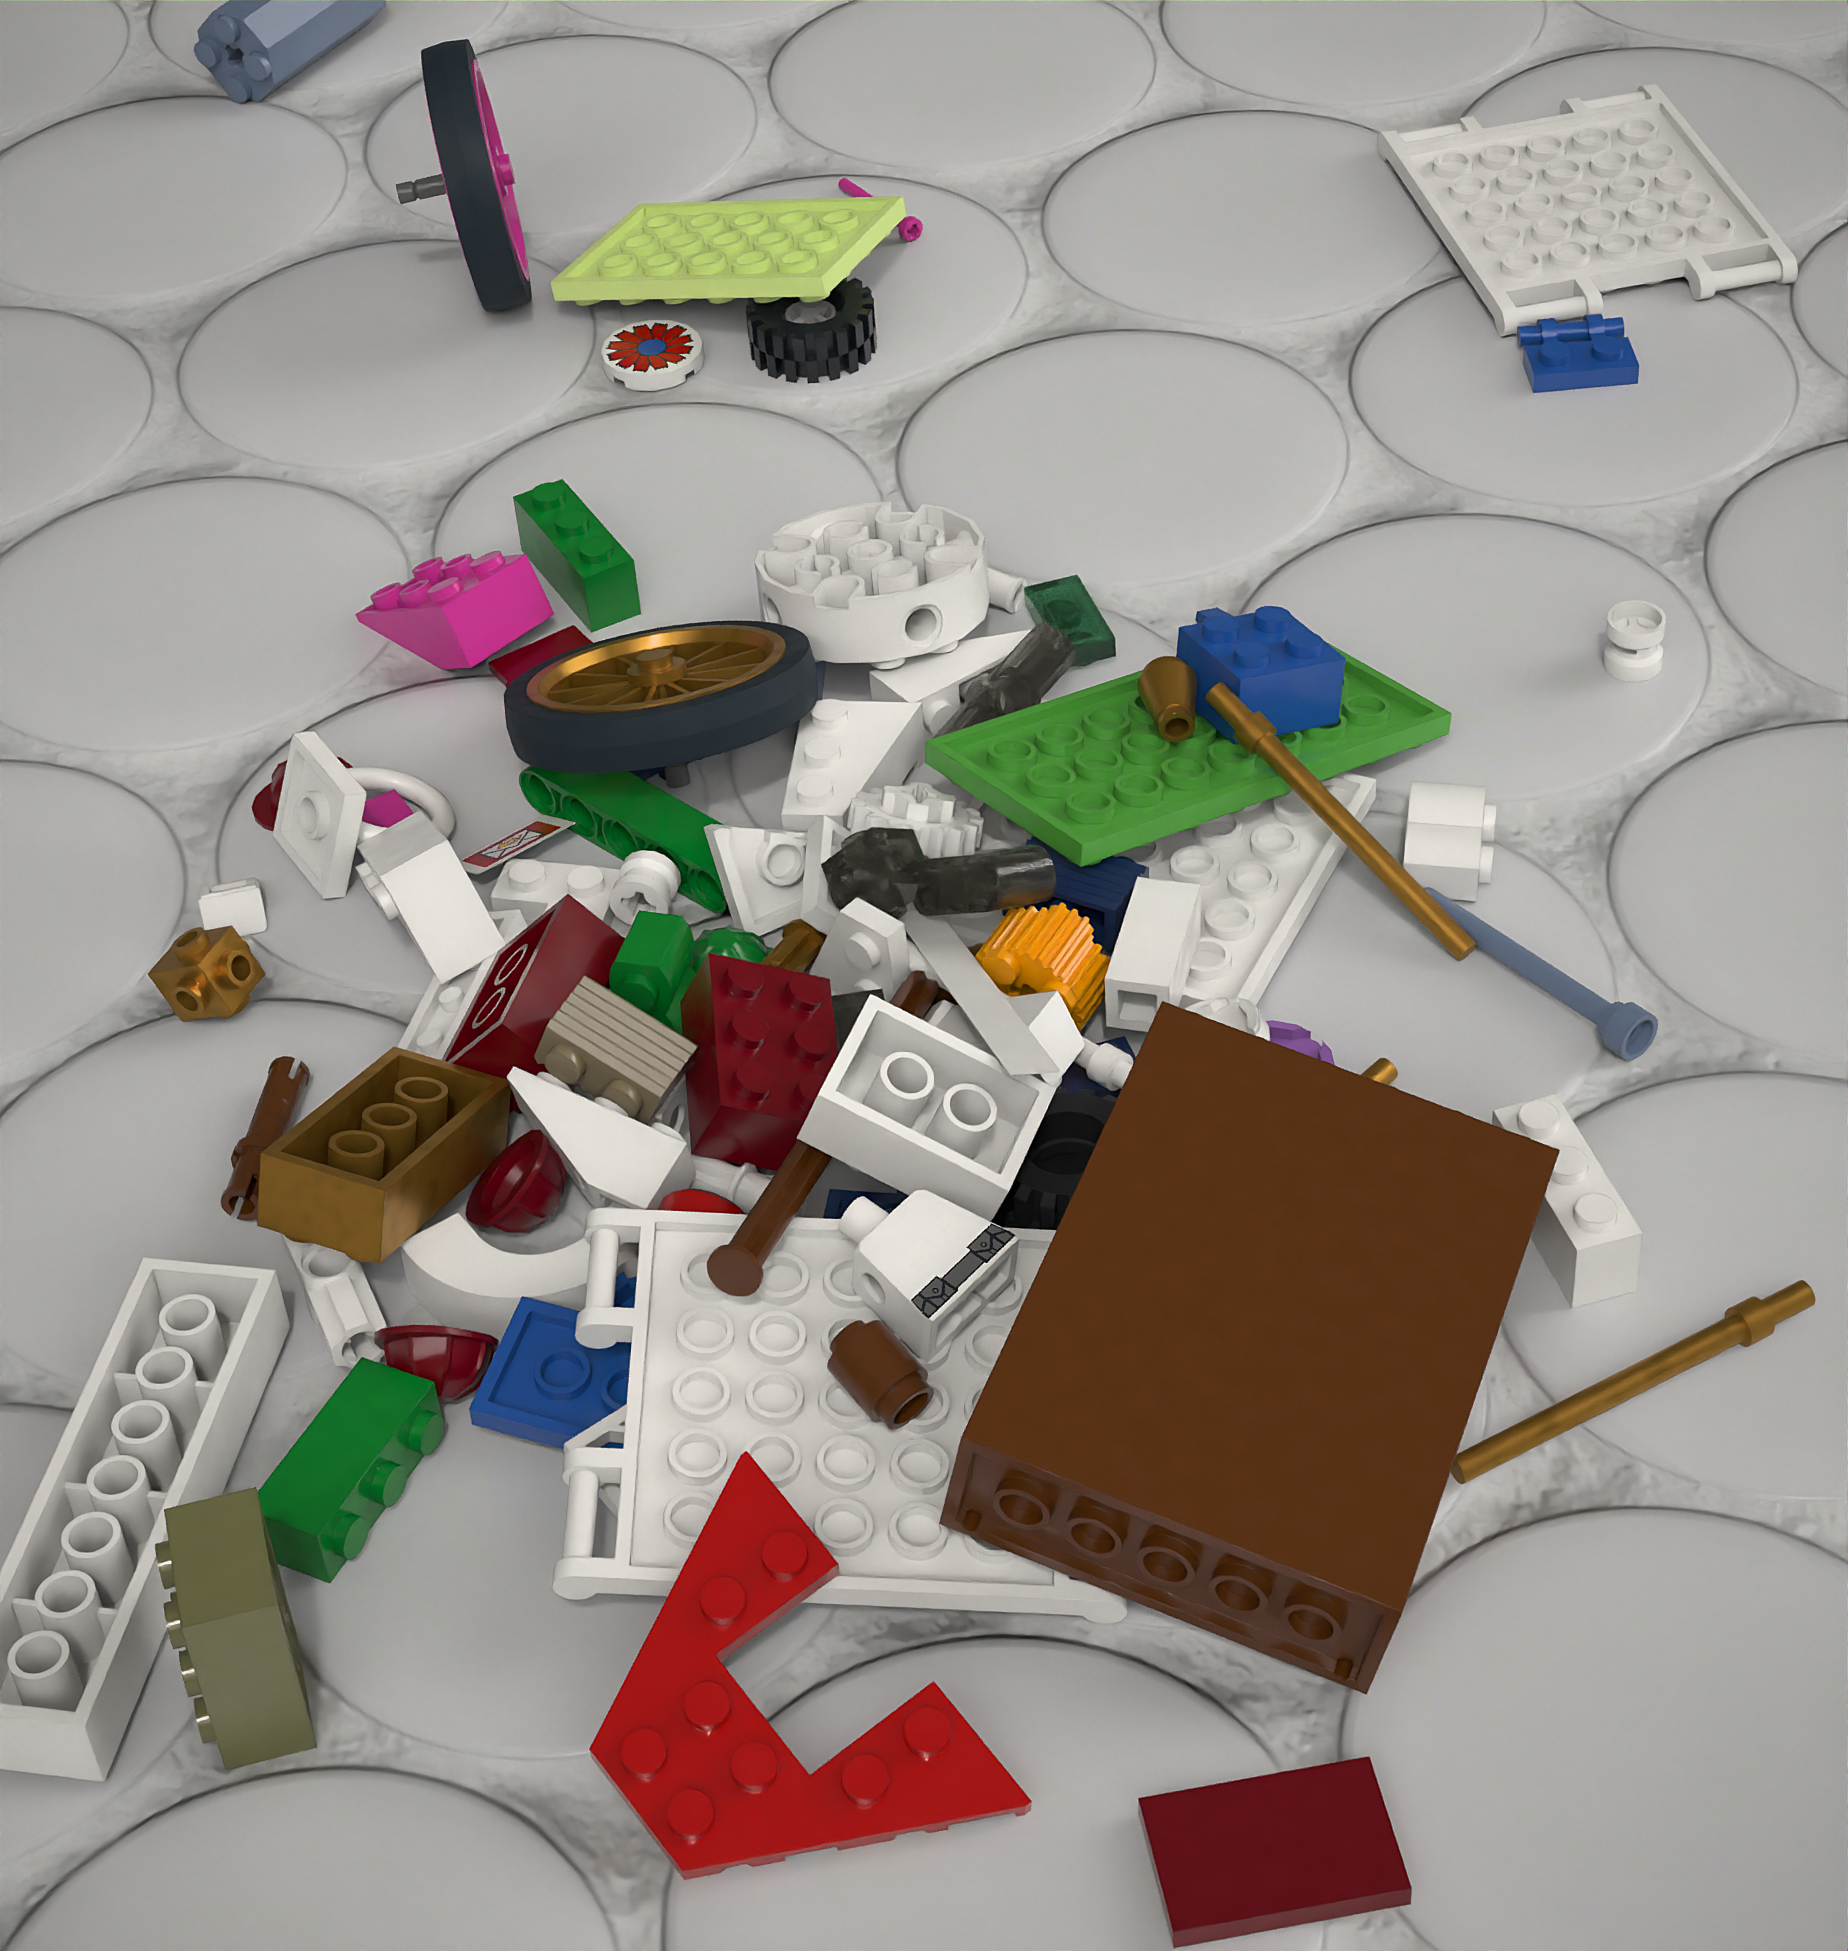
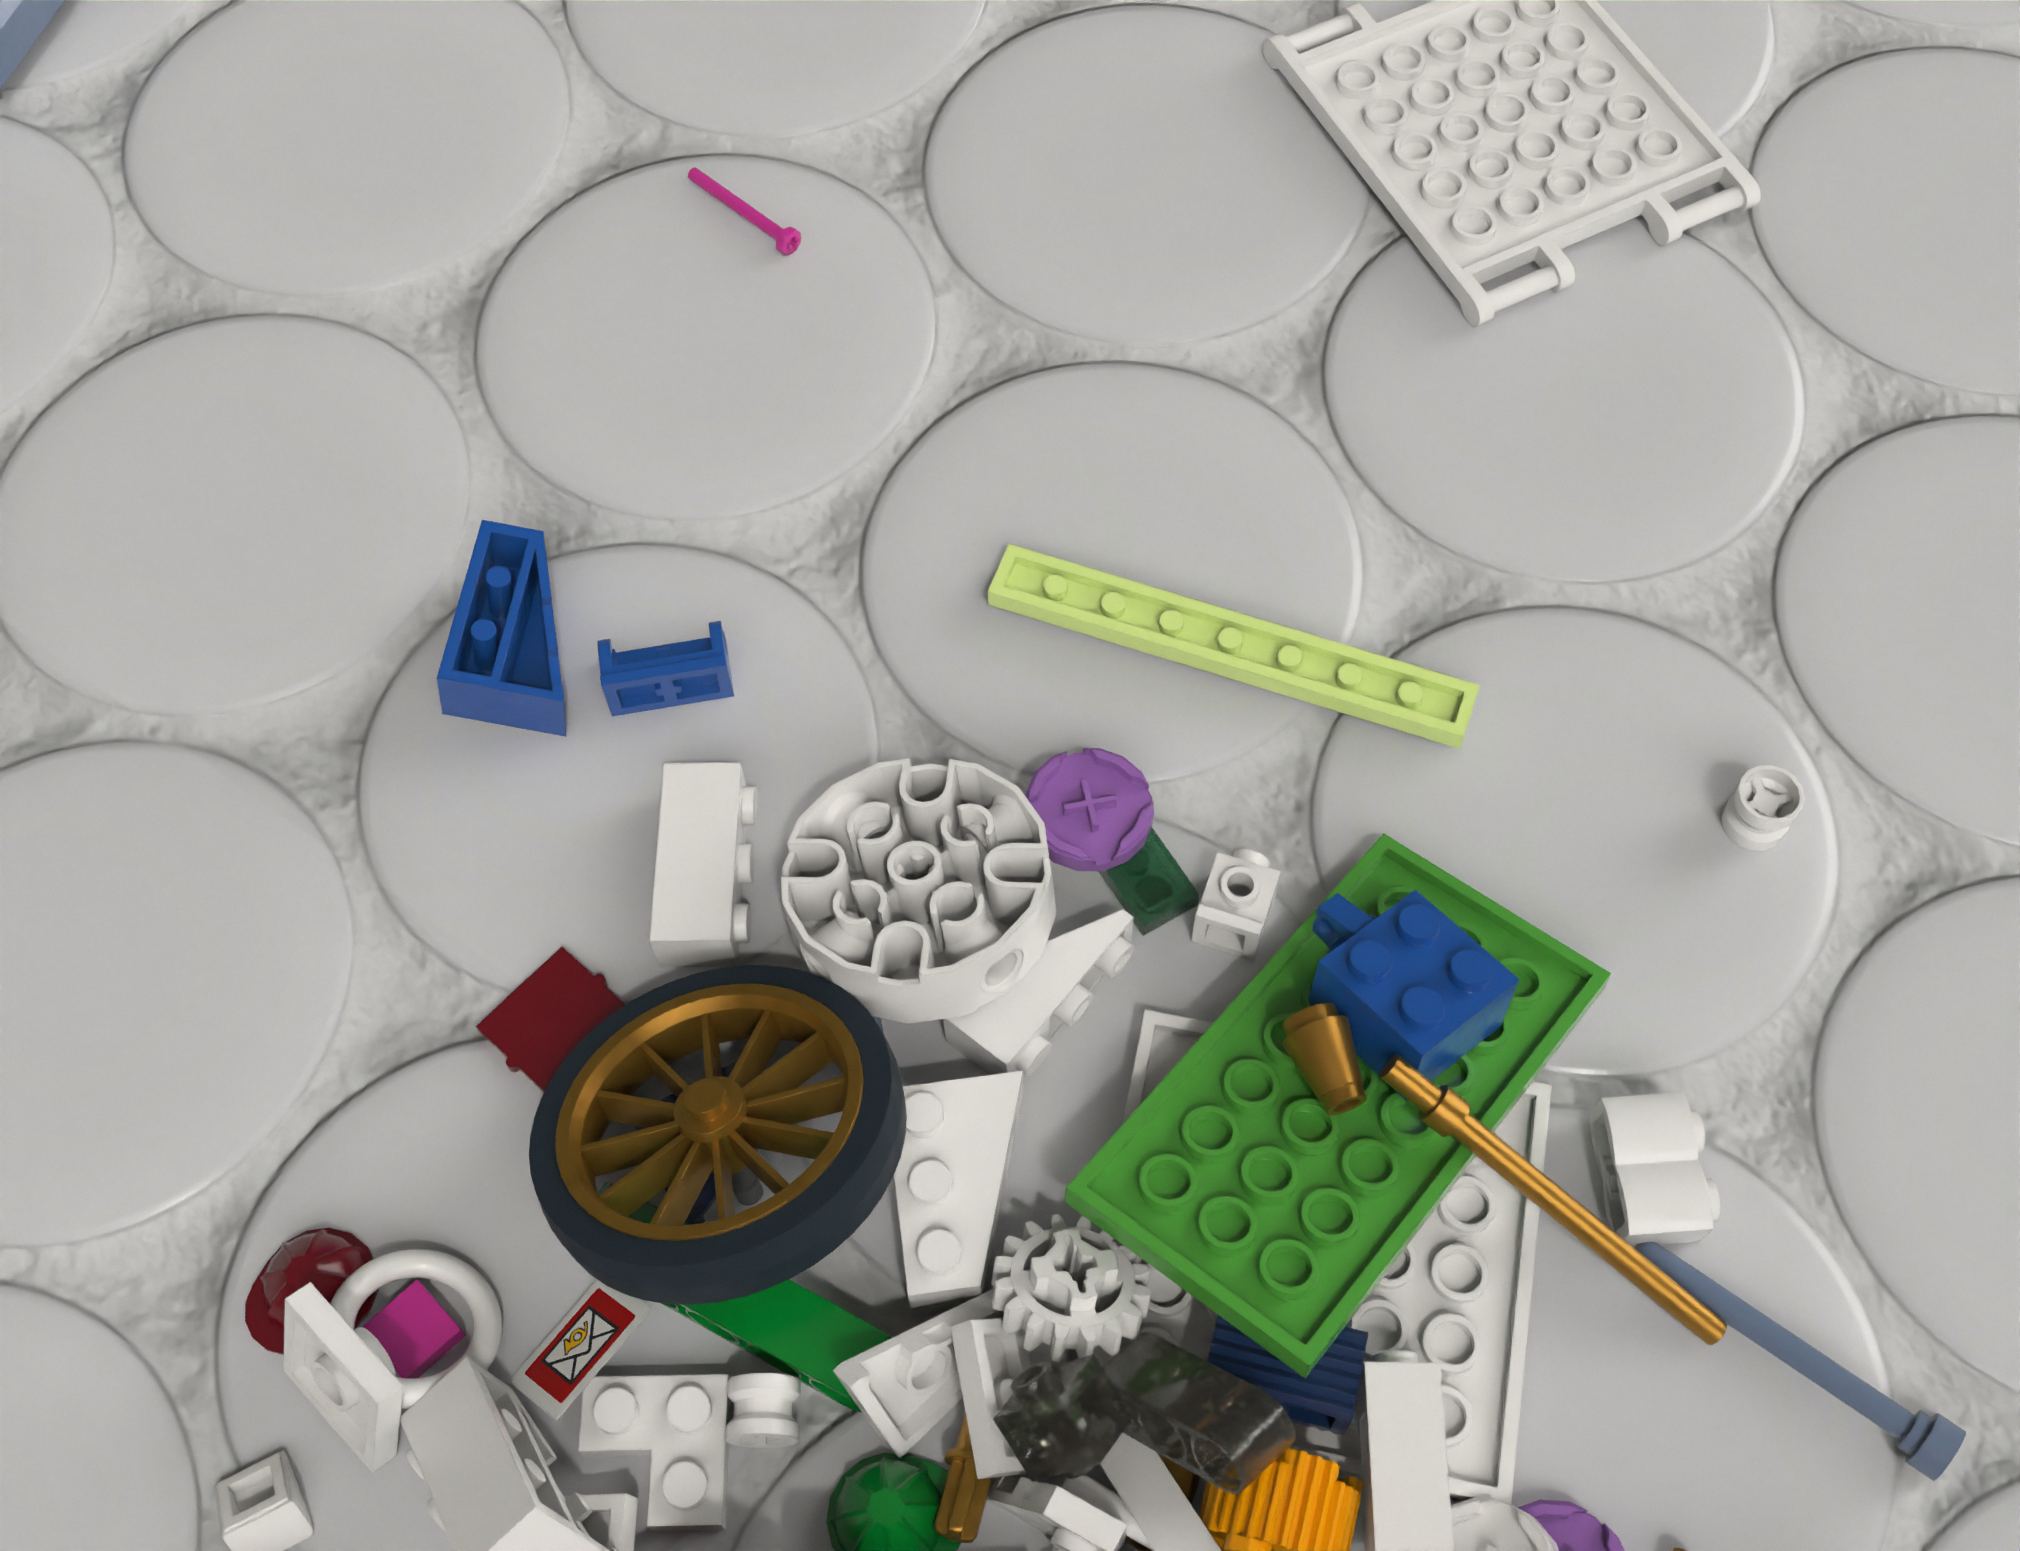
camera: 15 degrees left, 20 degrees up
(460, 608) = (419, 954): dark pink slope -> none
(473, 175) = (280, 288): black wheel -> none
(577, 555) = (542, 846): green brick -> none
(585, 427) = (503, 636): none -> blue wedge
(652, 354) = (544, 480): tile -> none
(705, 569) = (702, 865): none -> white brick
(714, 473) = (666, 673): none -> blue hinge
(730, 250) = (603, 328): yellowish green plate -> none
(813, 336) = (692, 417): black wheel -> none
(1021, 676) = (1105, 1032): clear smoke piece -> none
(1039, 573) = (1092, 808): none -> medium lavender tile
(1141, 637) = (1234, 921): none -> white brick
(1207, 502) = (1234, 645): none -> yellowish green plate
(1577, 354) = (1570, 364): blue plate -> none

